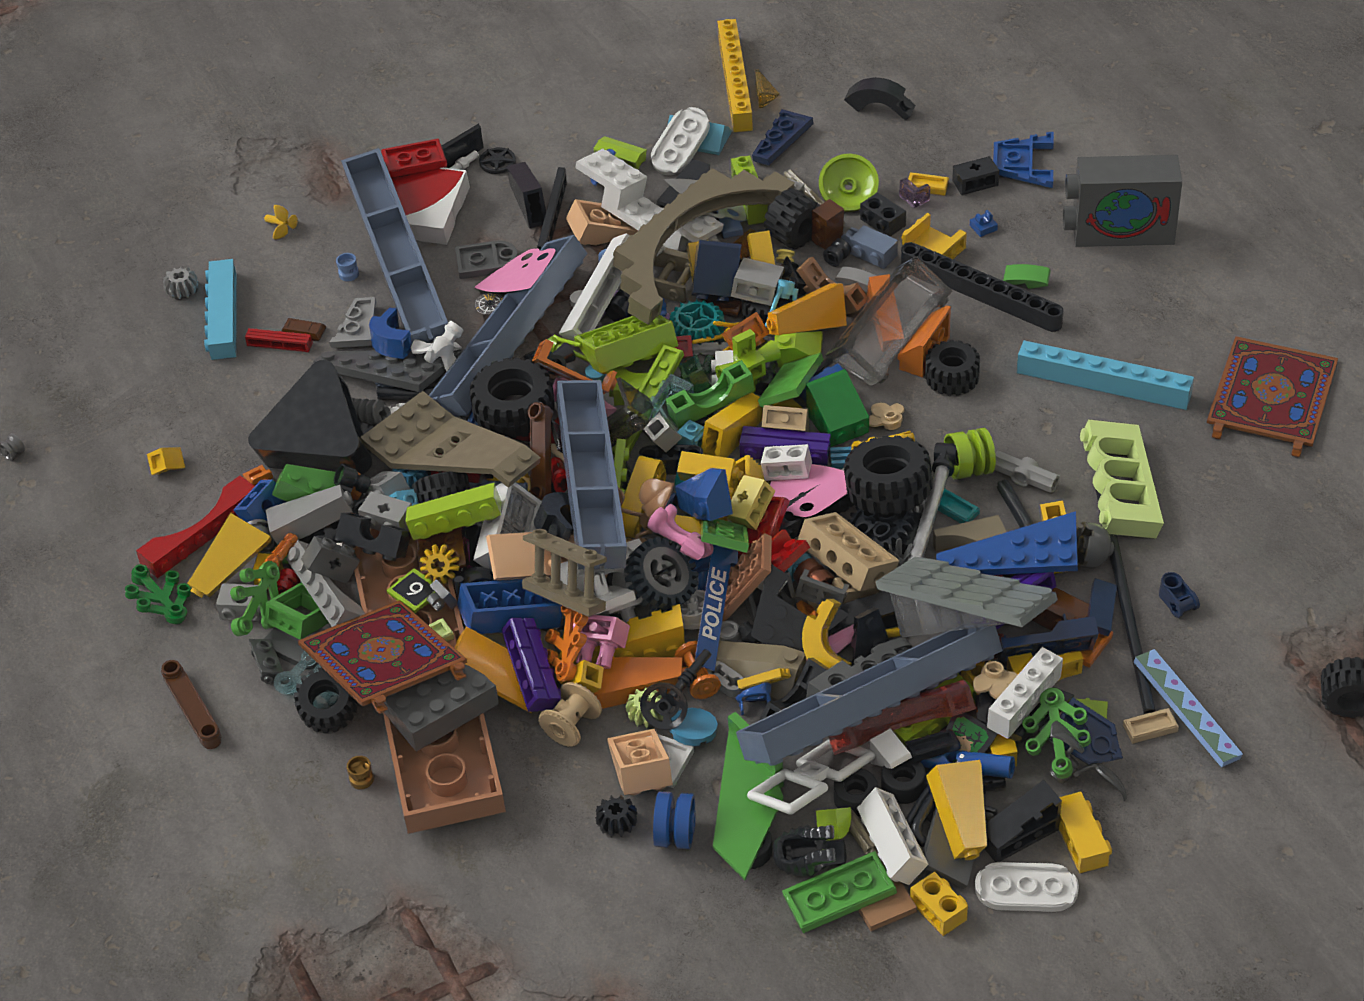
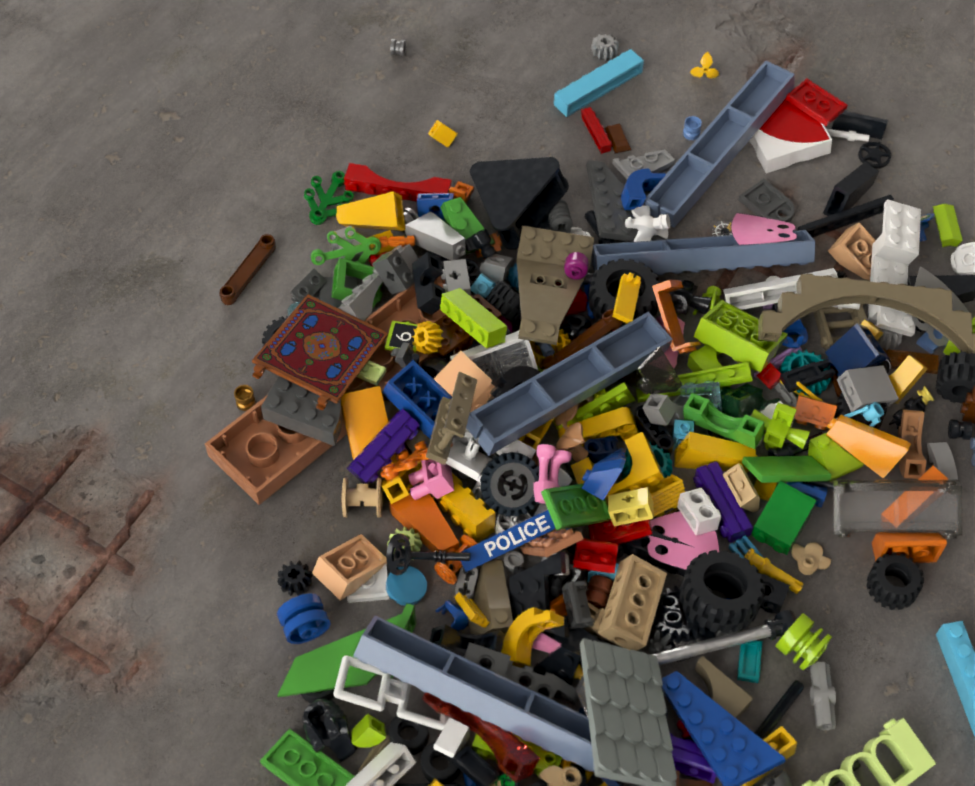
camera: 55 degrees right, 10 degrees up
(449, 415) = (576, 265): none -> magenta head
(530, 386) = (627, 297): none -> yellow hinge
(705, 316) = (806, 375): none -> black hinge

